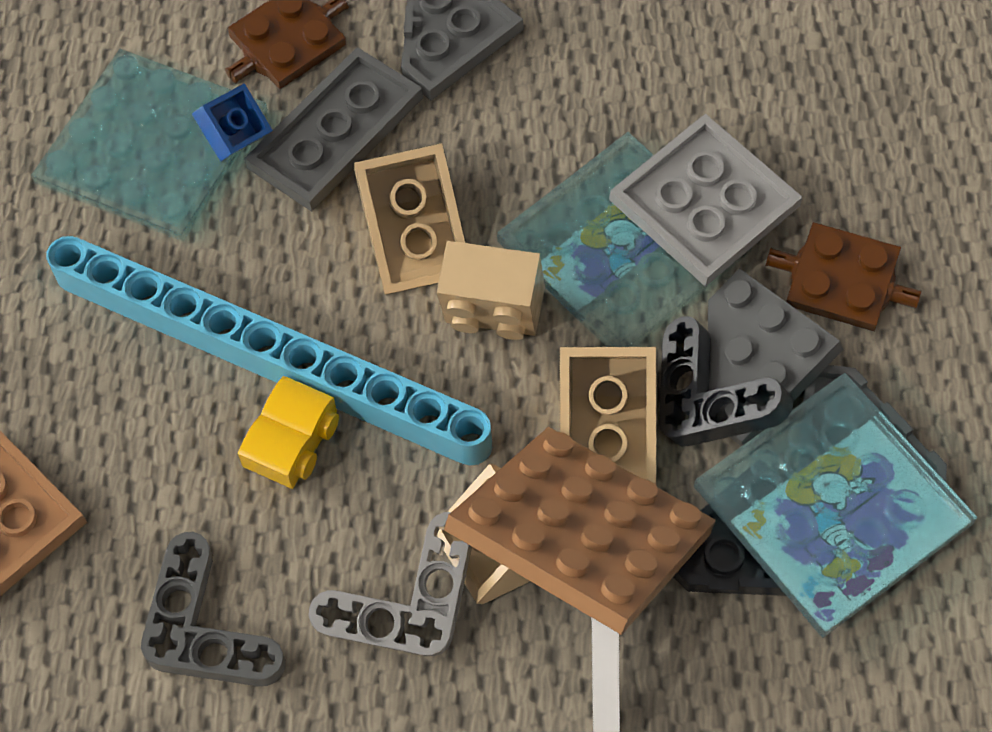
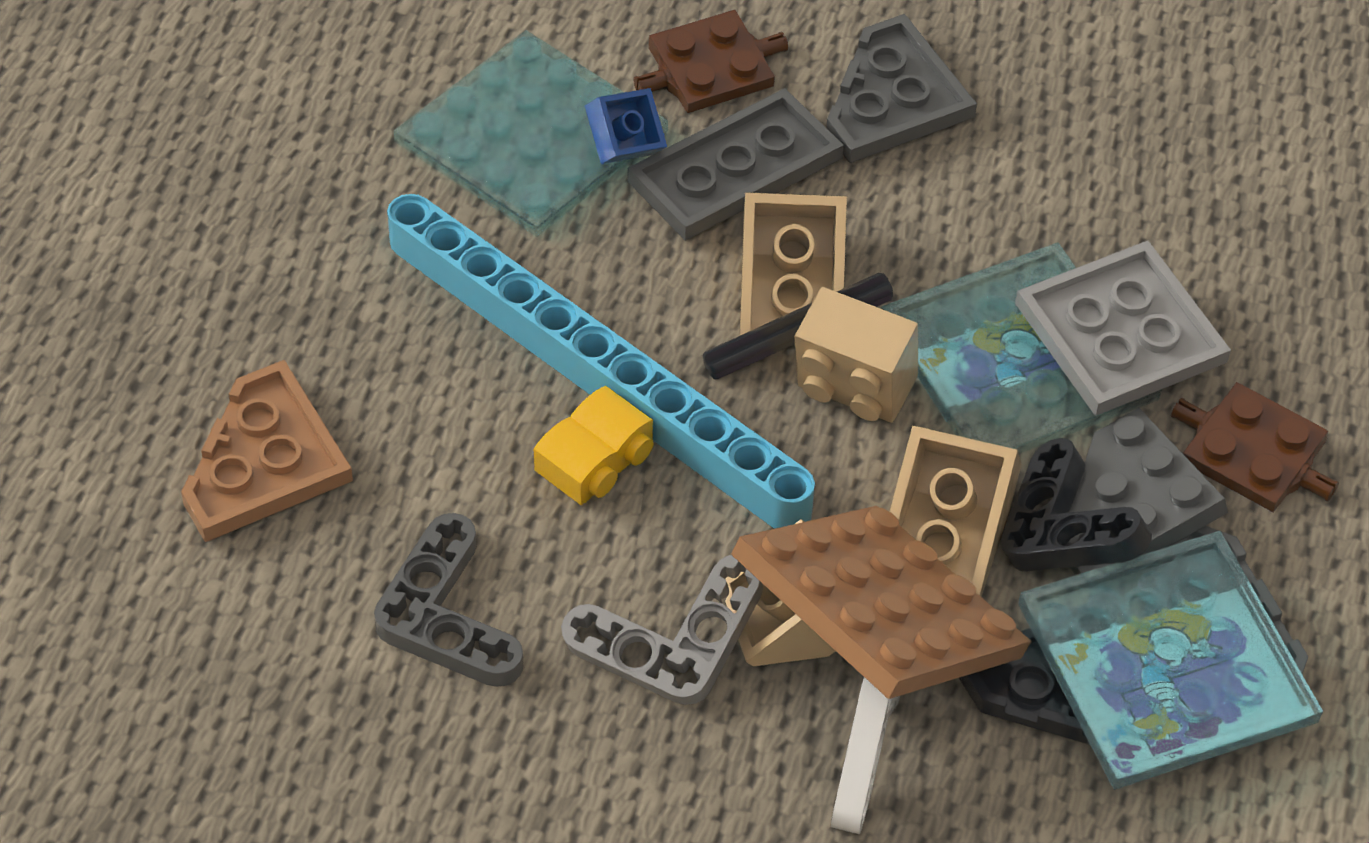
camera: 10 degrees right, 10 degrees down
(427, 272) = (780, 332): none -> black axle

